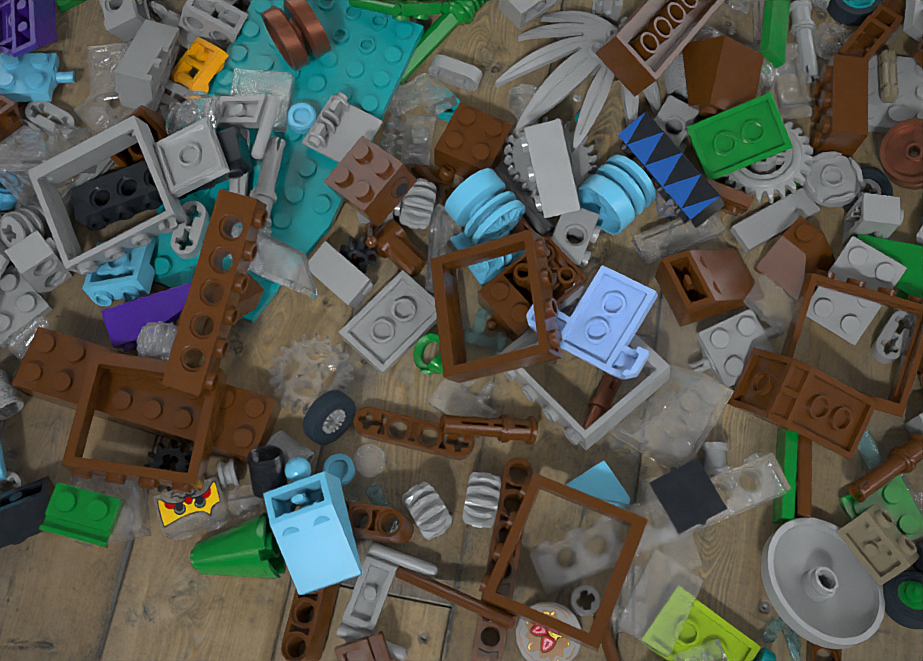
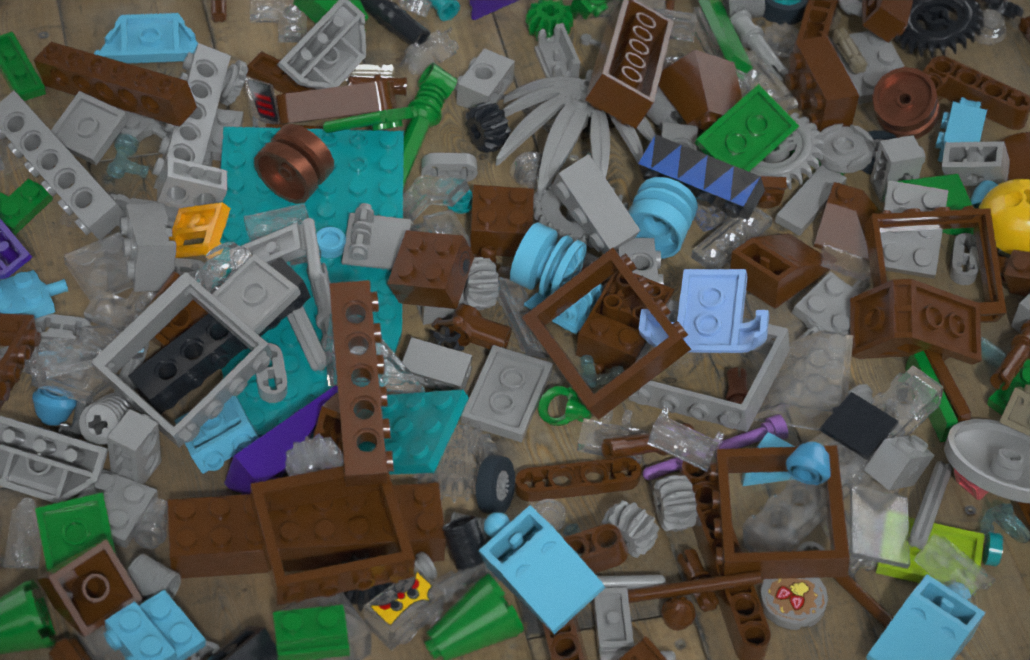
camera: 25 degrees left, 20 degrees down
(280, 336) = (420, 428): none -> teal plate
(433, 610) = (678, 613): none -> reddish brown plate
(468, 580) = (694, 570): none -> reddish brown axle
(506, 44) = (487, 126): none -> black gear
(517, 443) = (684, 441): none -> clear hinge
(608, 533) = (809, 464): none -> dark azure cone
(614, 452) = (775, 425): none -> medium lavender piece
(712, 543) = (899, 461): none -> light grey brick
(721, 598) = (930, 505): none -> light grey axle

